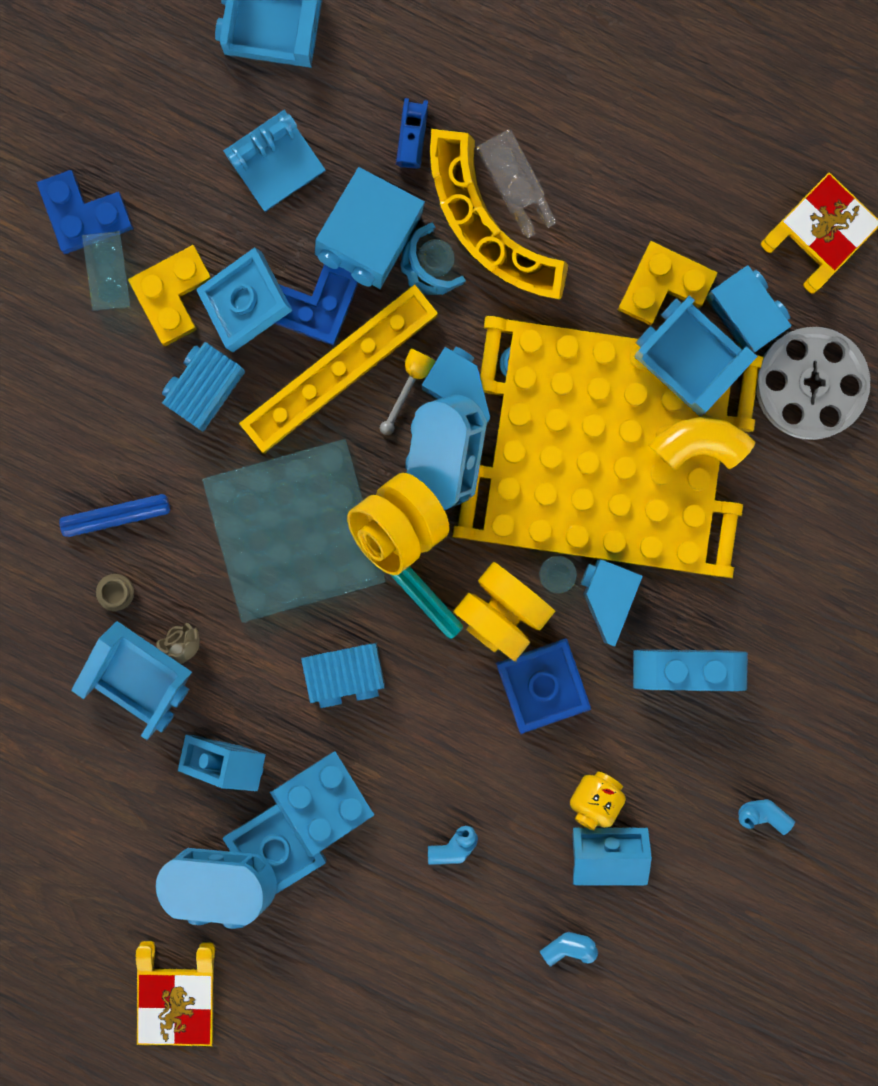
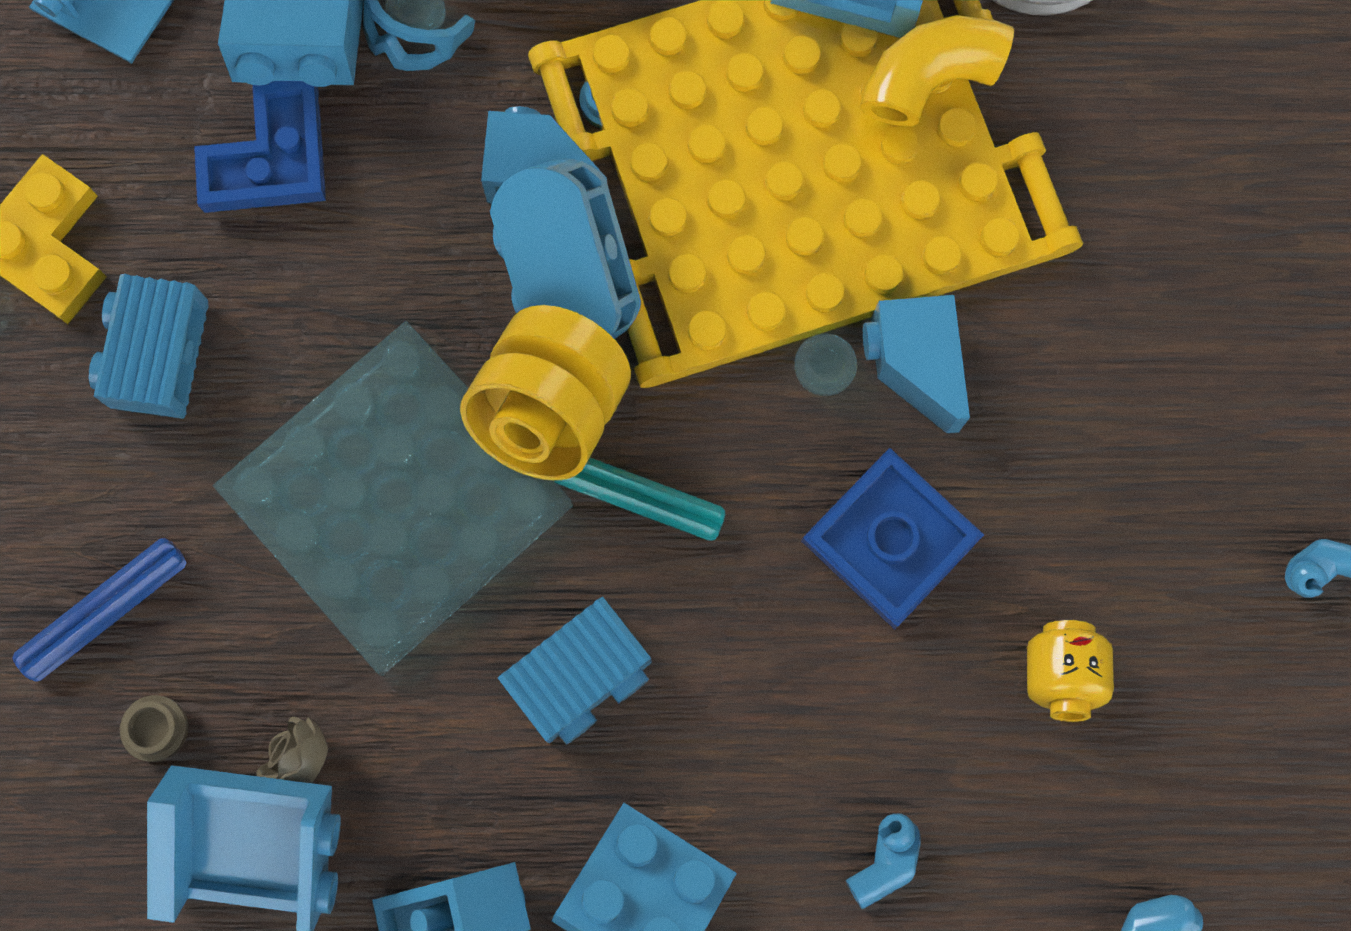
camera: 30 degrees left, 10 degrees down
(244, 300) = (153, 190): dark azure plate -> none
(339, 369) = (345, 229): yellow plate -> none
(417, 367) = (462, 167): hinge -> none
(509, 604) = (776, 447): yellow wheel -> none
(611, 856) = (1137, 748): dark azure panel -> none
(690, 670) = (1099, 398): dark azure brick -> none

